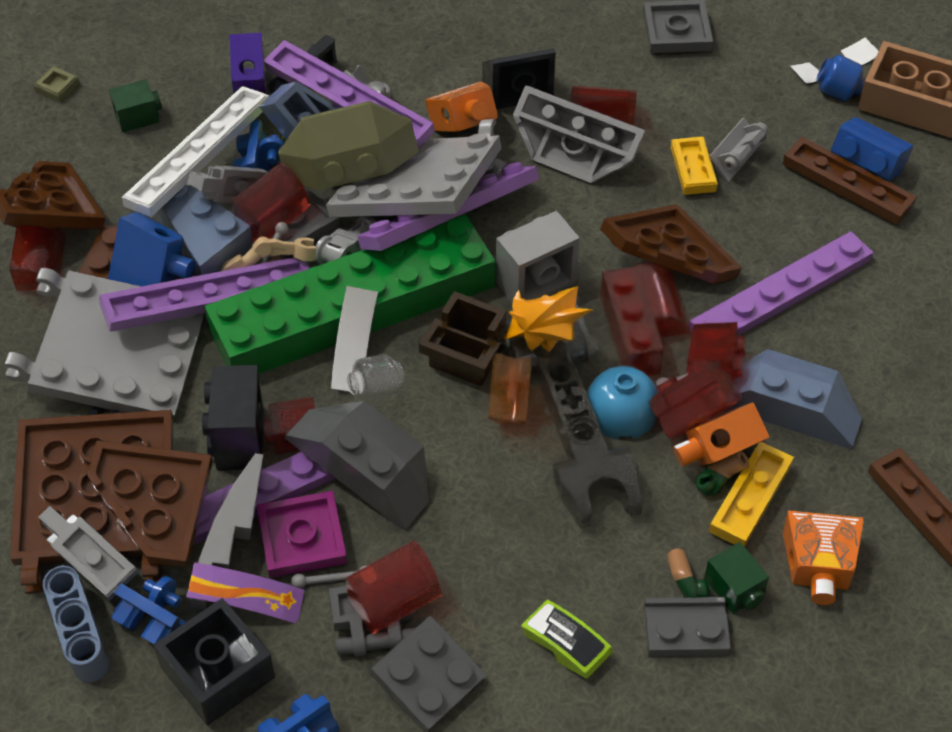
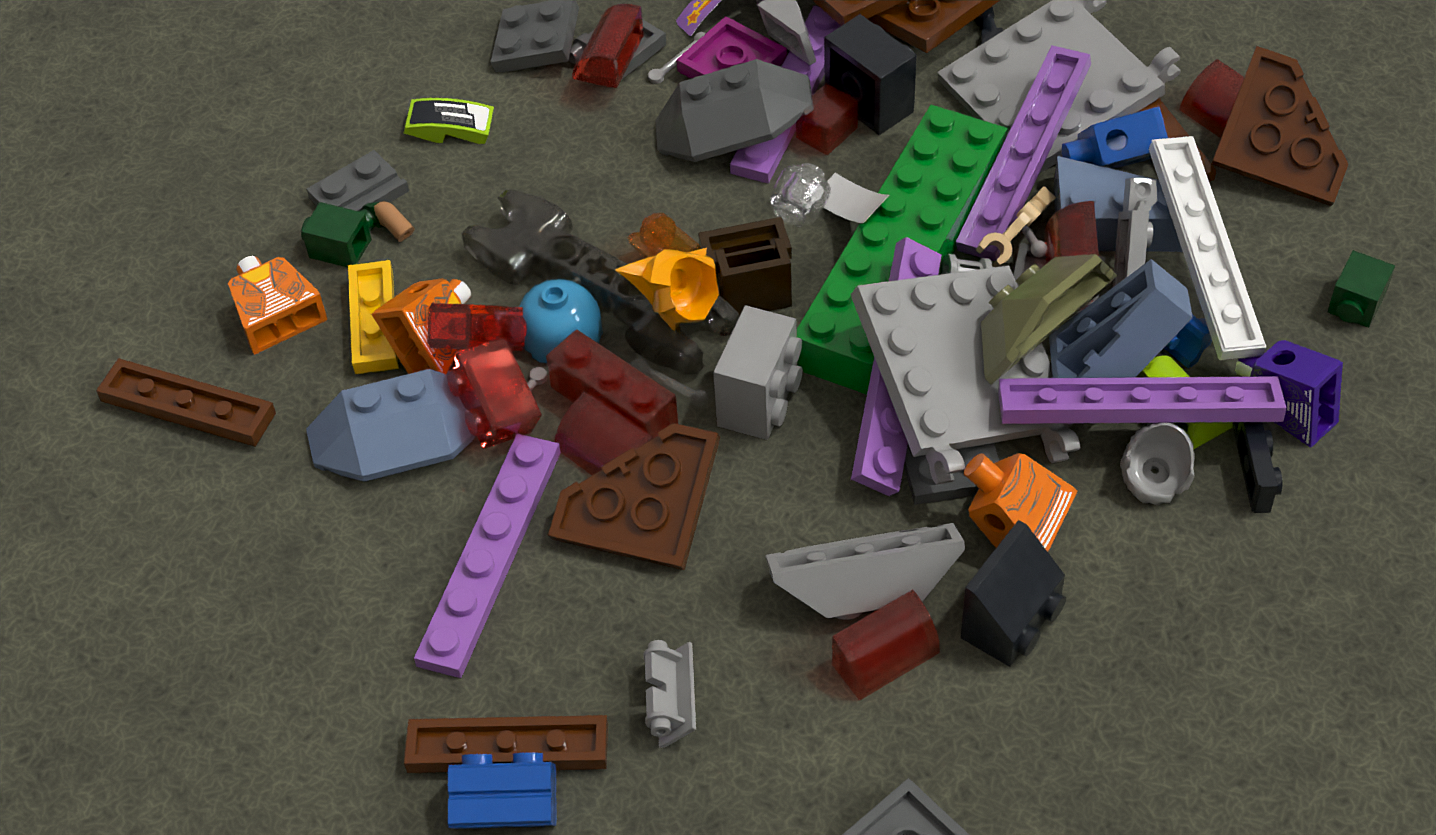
camera: 145 degrees right, 0 degrees up
(693, 165) = (714, 641): yellow plate -> none

